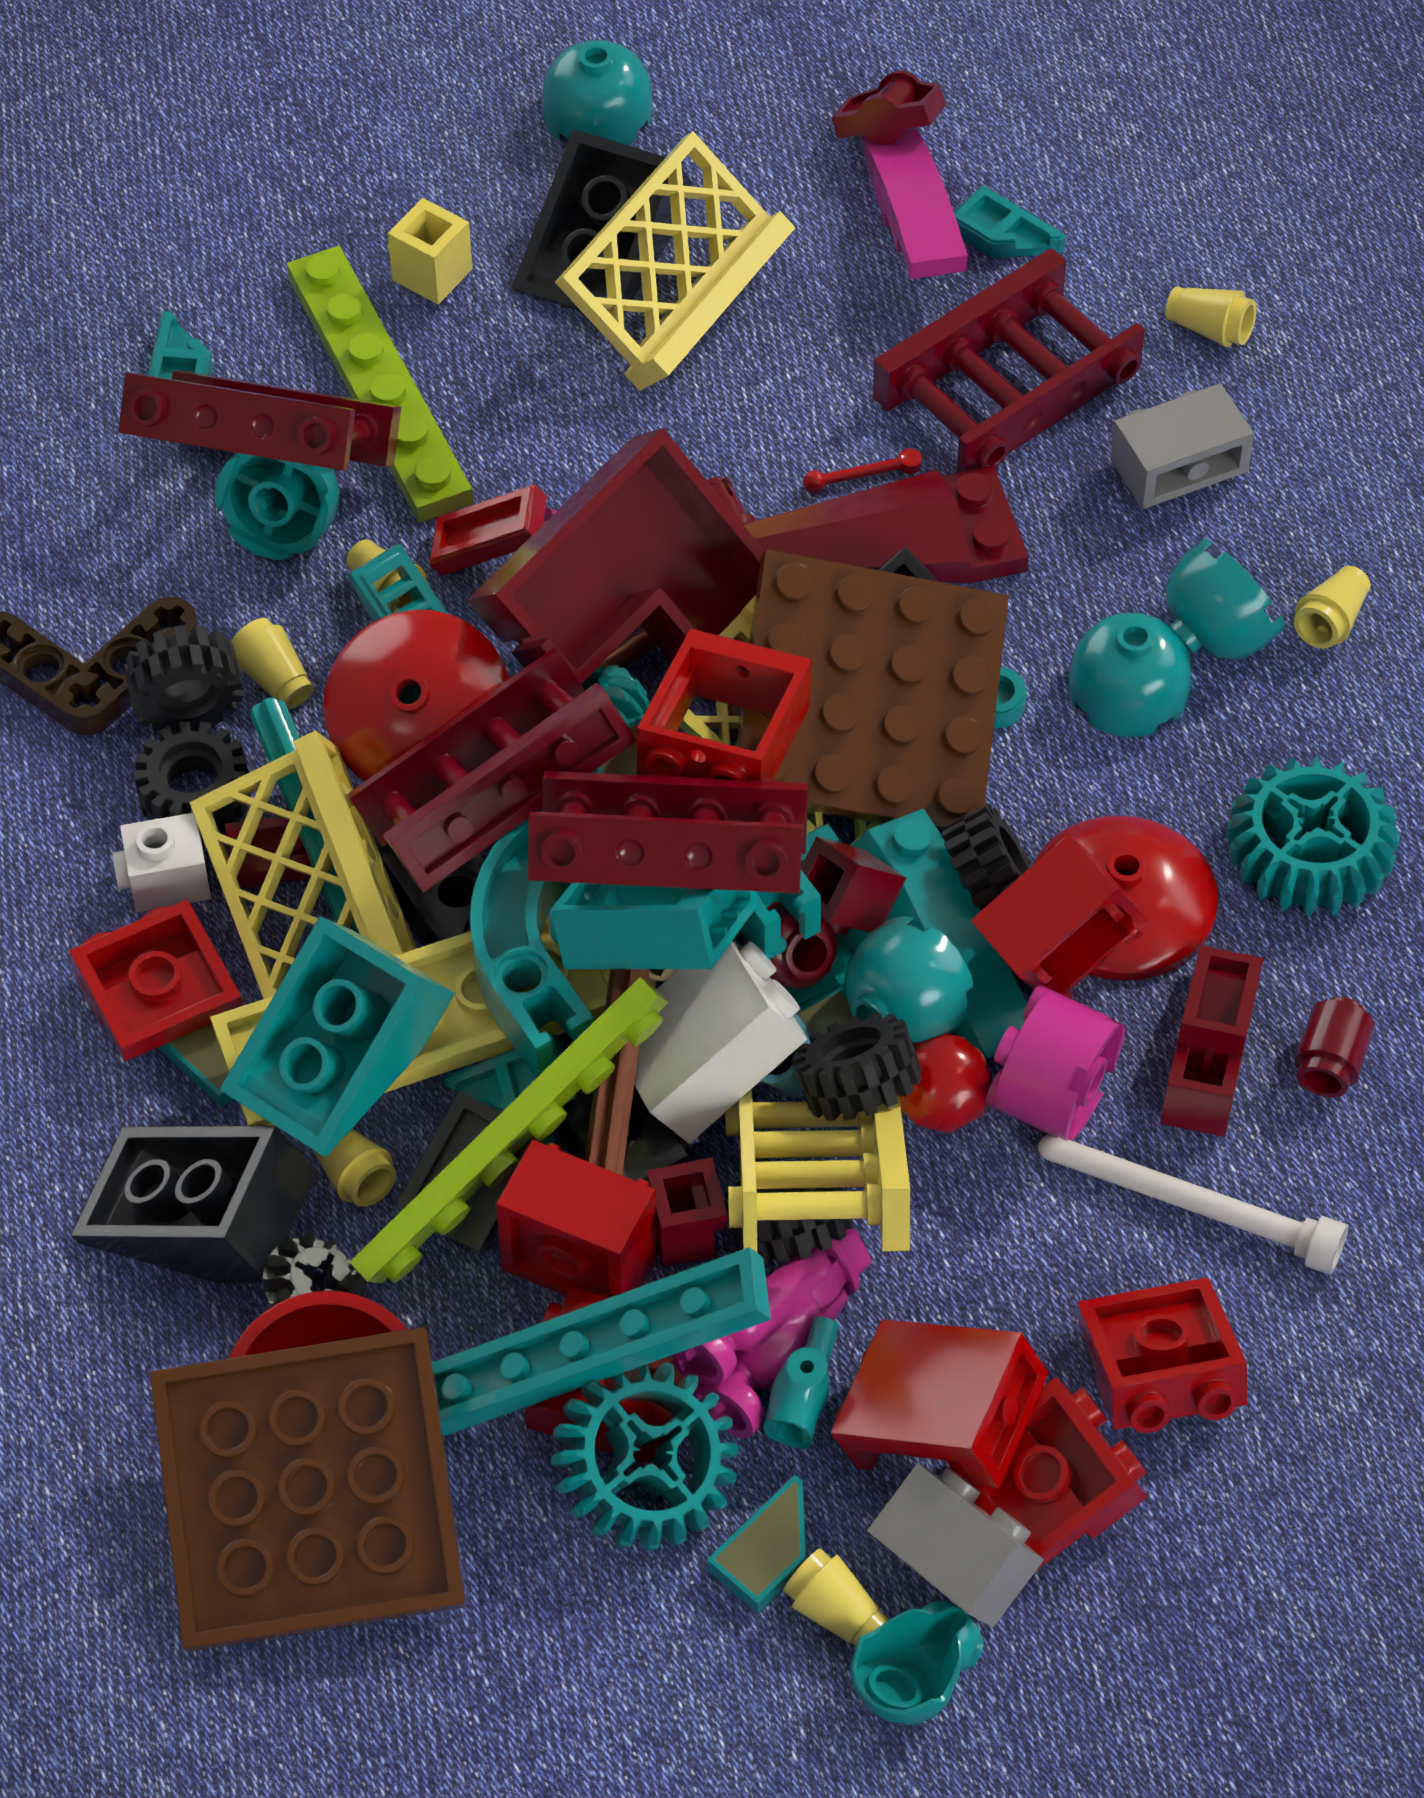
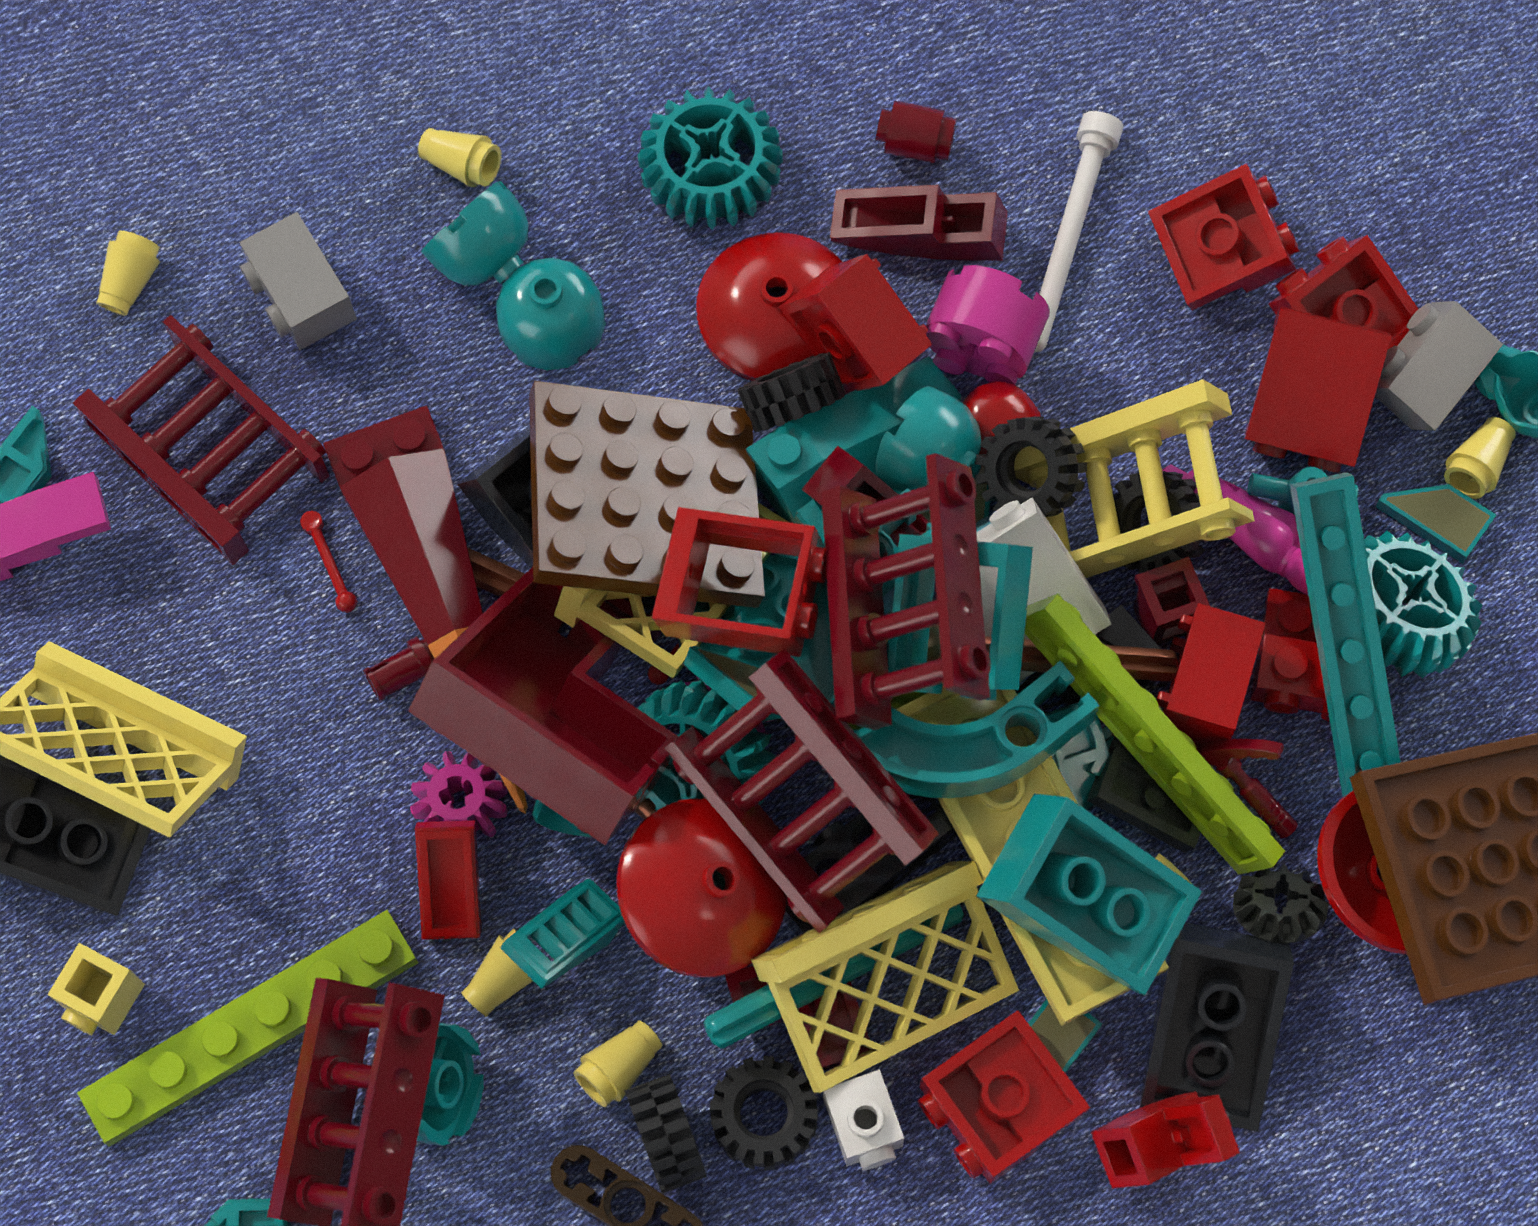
camera: 95 degrees left, 15 degrees up
(75, 1120) = (1164, 1138): none -> red brick
(448, 1268) = (1226, 757): none -> dark red piece

